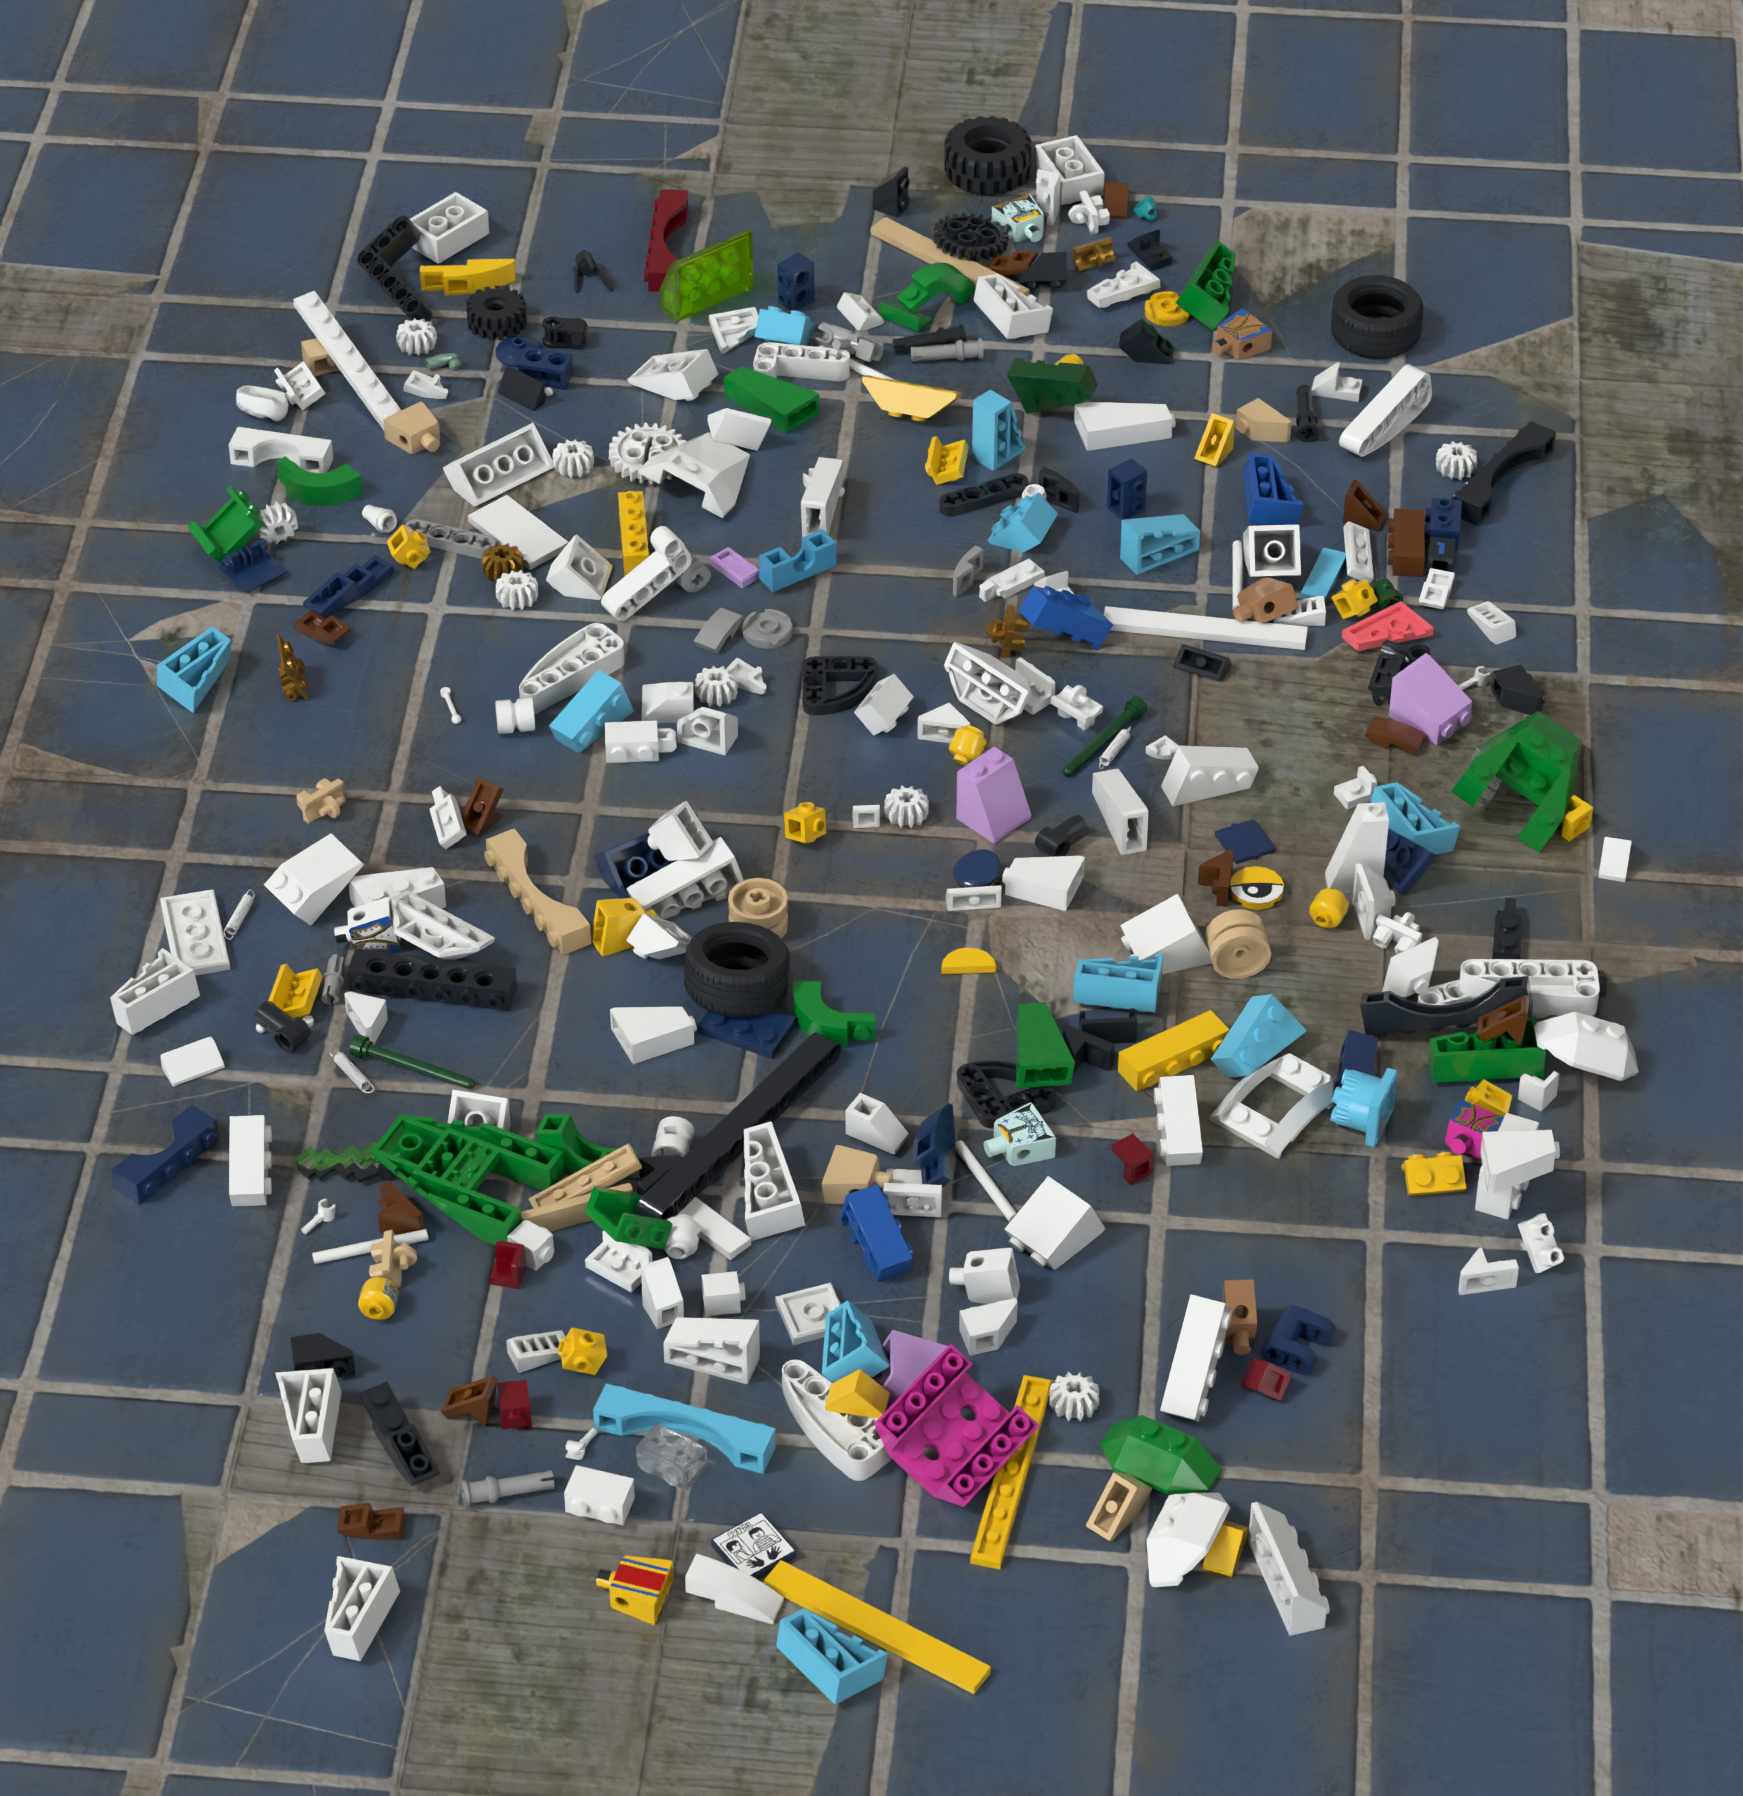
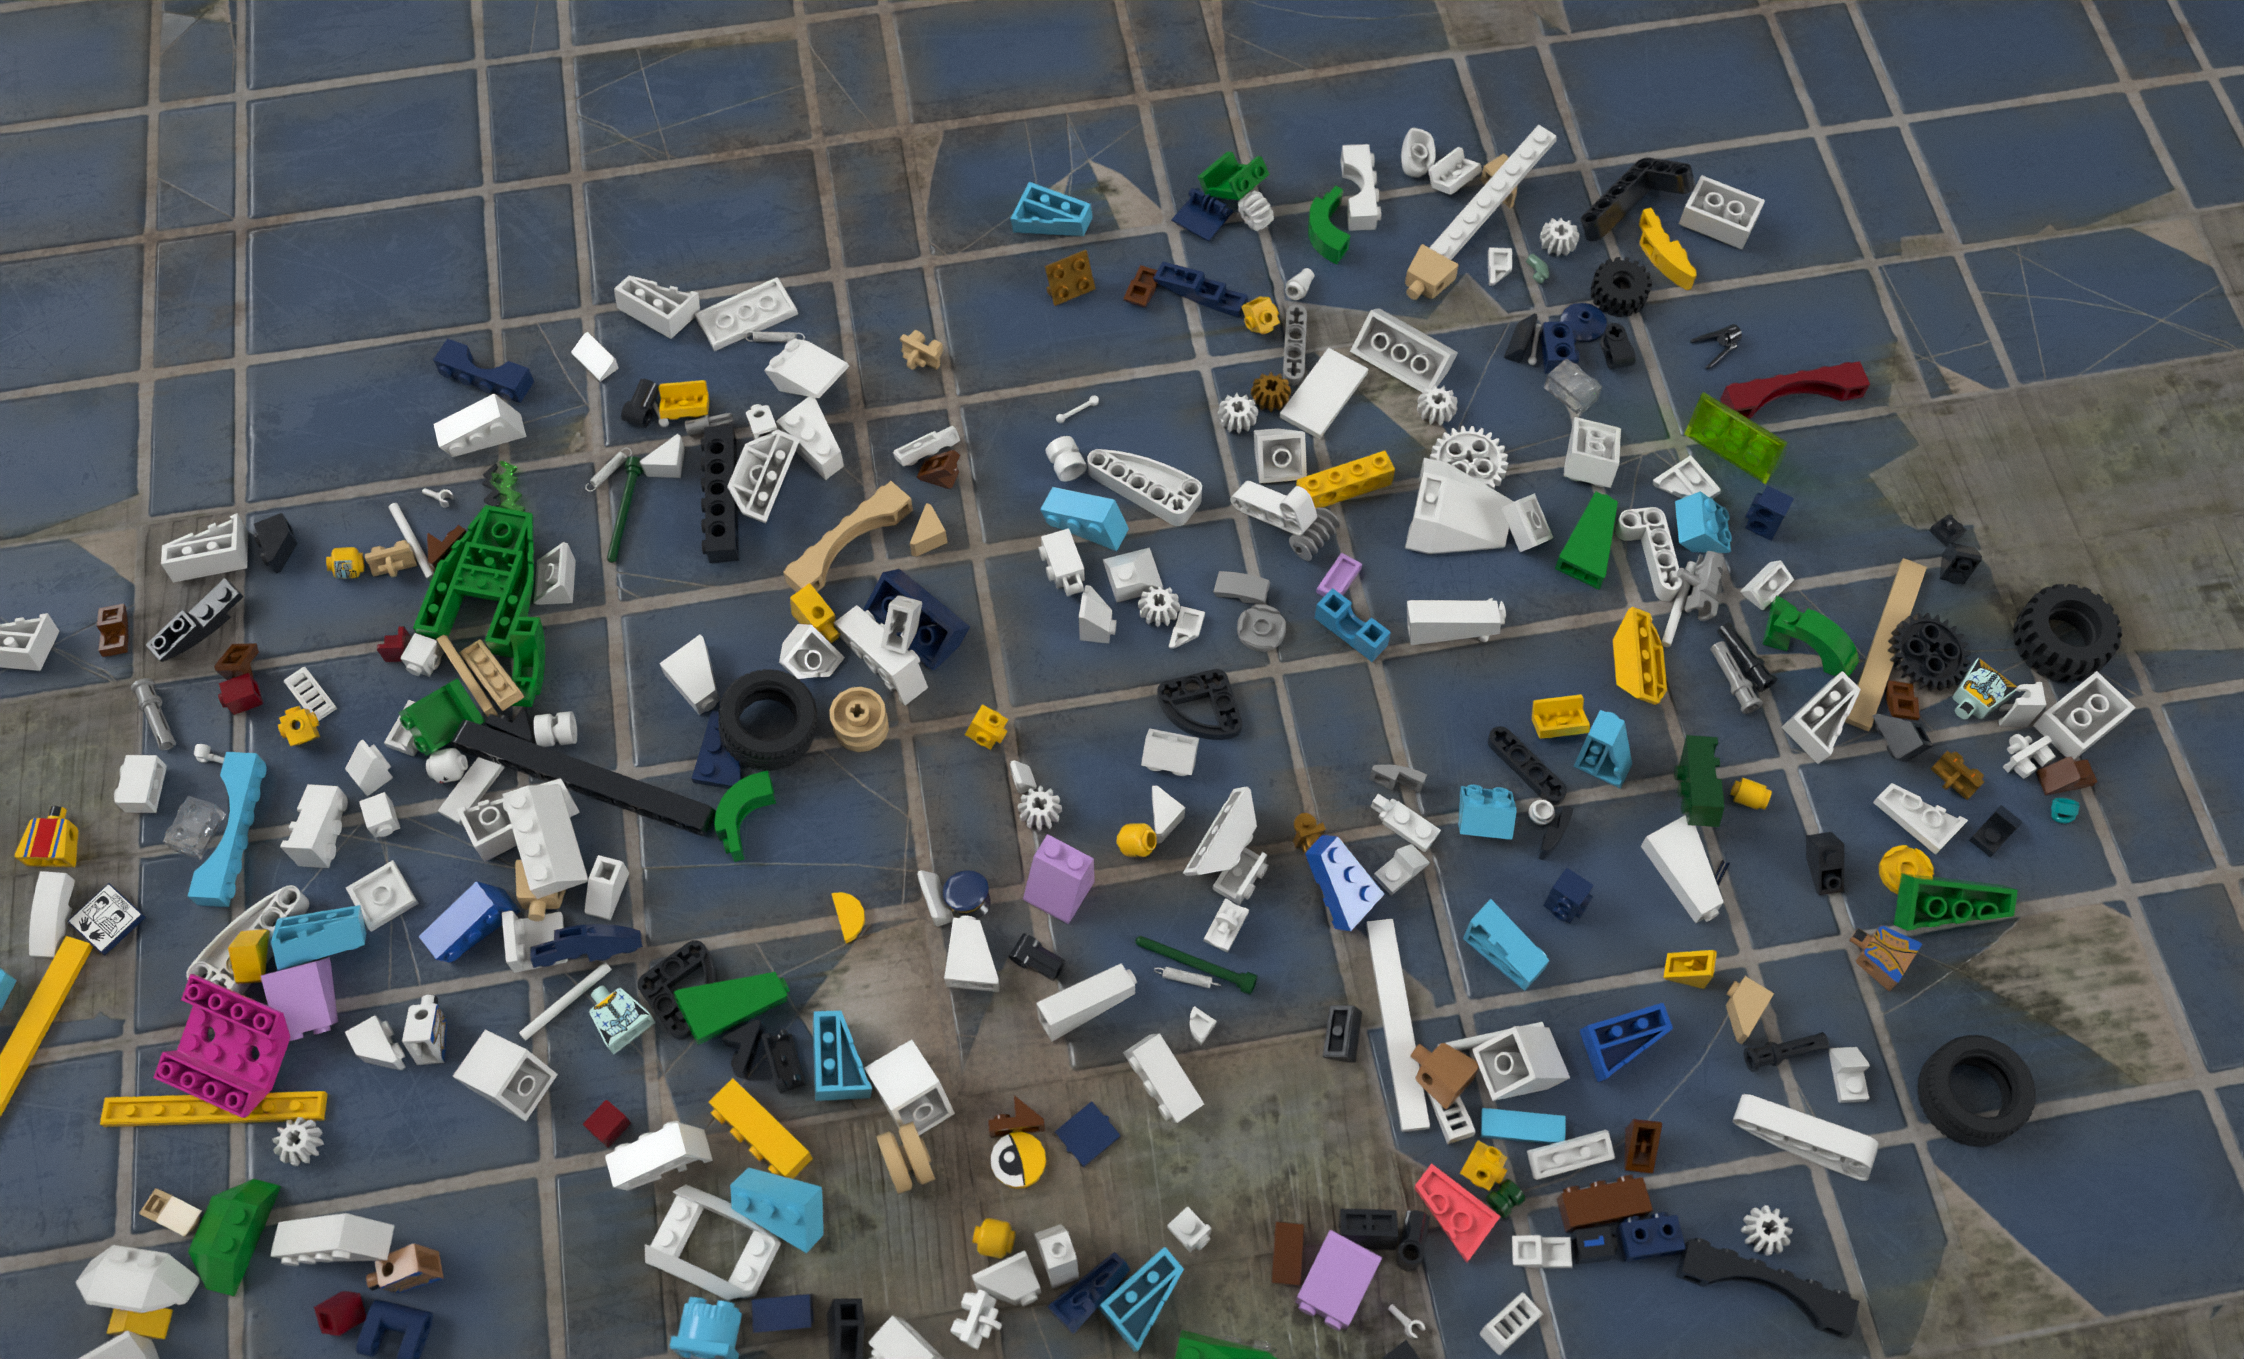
camera: 75 degrees right, 20 degrees up
(552, 830) = (928, 533): none -> tan slope
(598, 367) = (1573, 386): none -> clear brick
(817, 1144) = (545, 839): none -> white slope
(852, 196) = (1947, 530): none -> black tile

